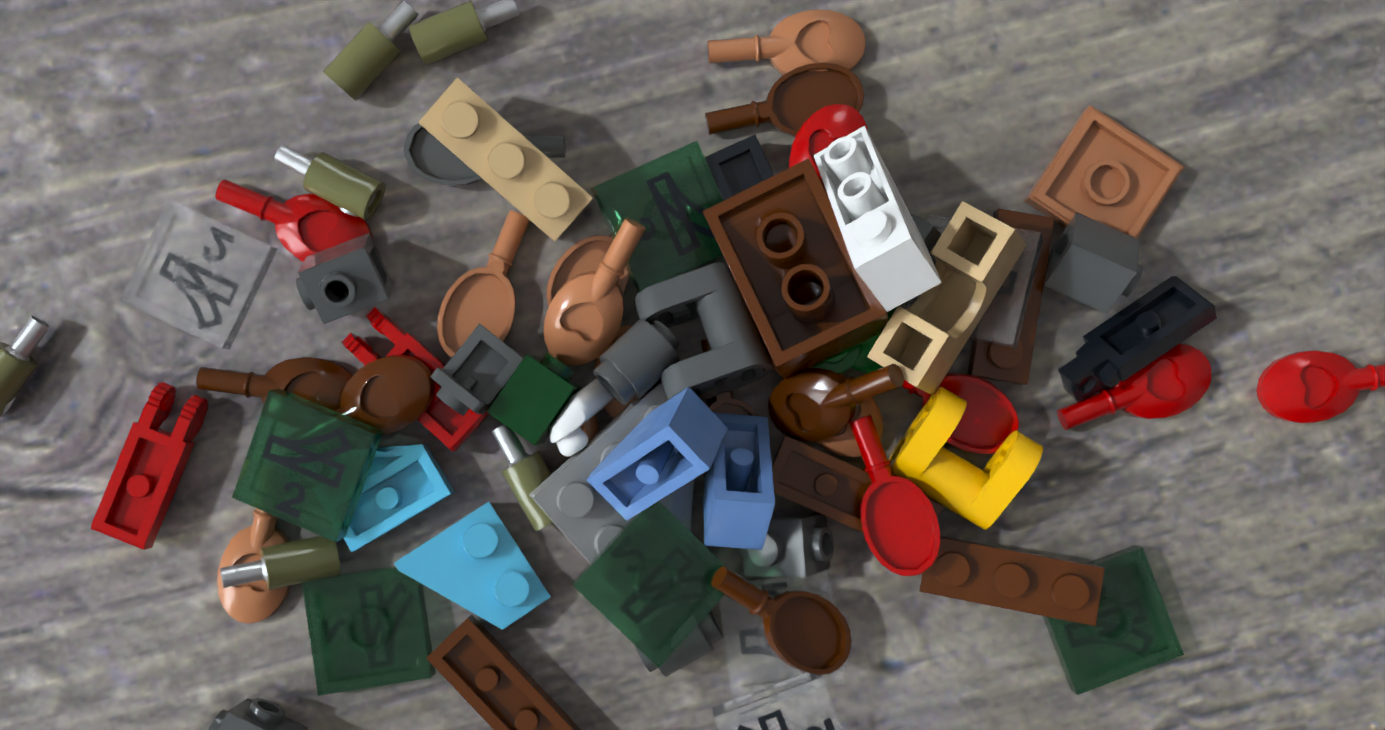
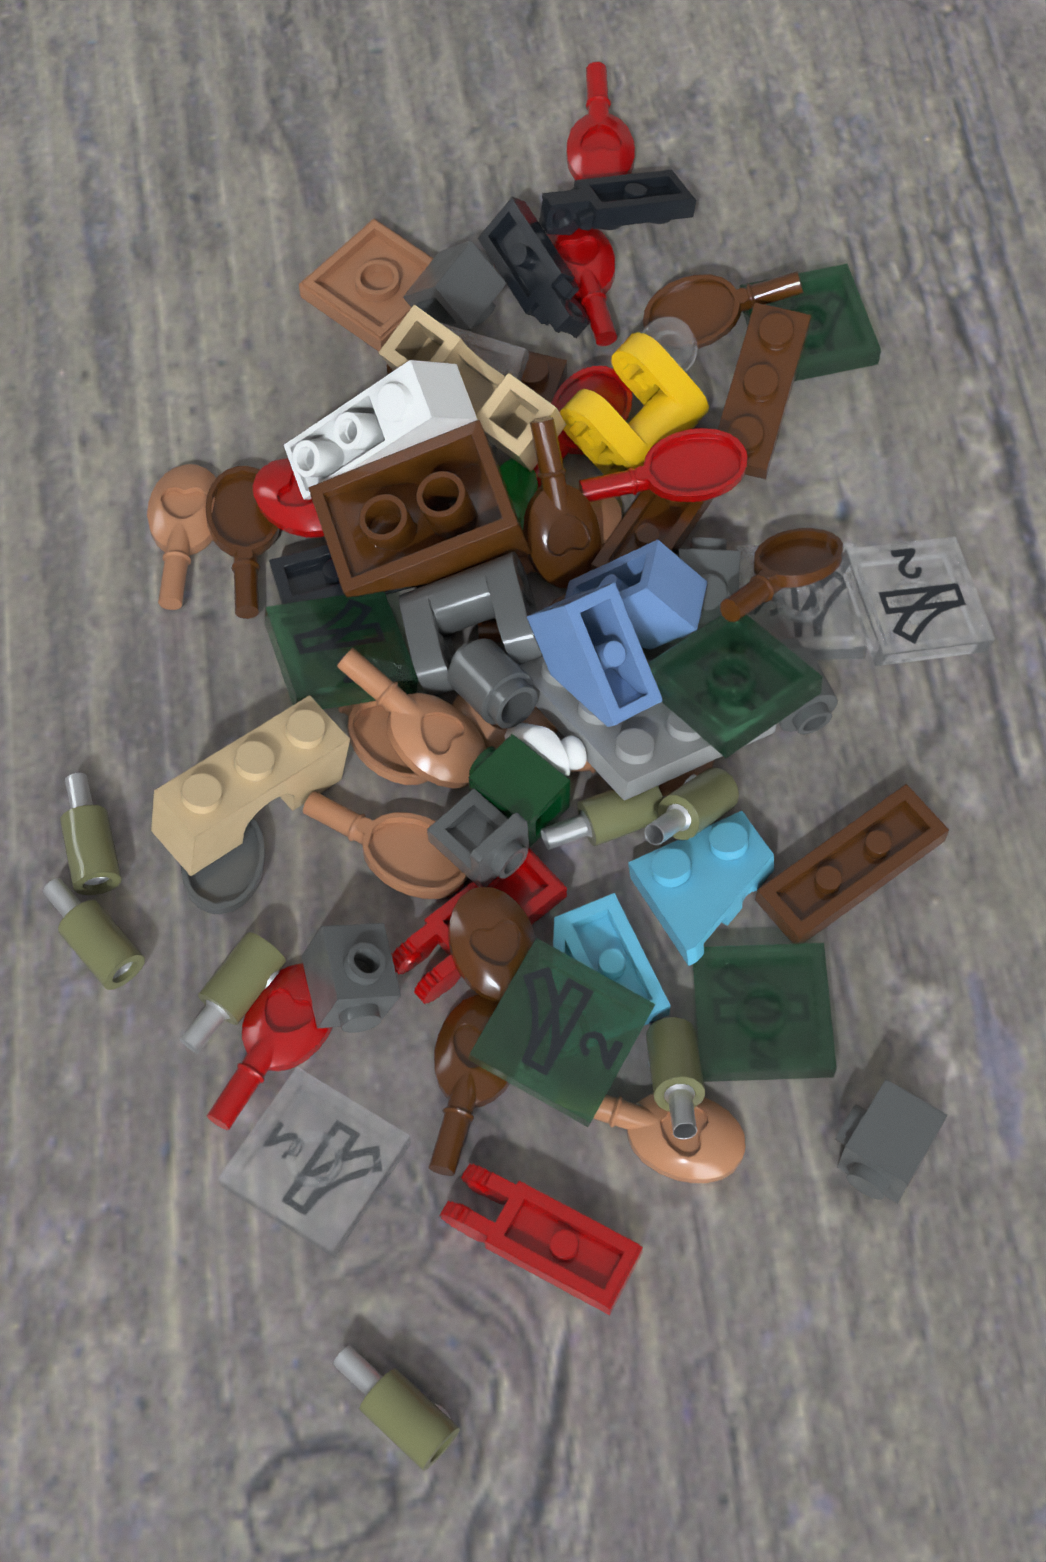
camera: 80 degrees left, 25 degrees down
(536, 554) = (693, 806): none -> olive piece
(1056, 482) = (675, 339): none -> clear tile
(1107, 517) = (713, 304): none -> reddish brown piece
(1230, 415) = (617, 202): none -> black hinge

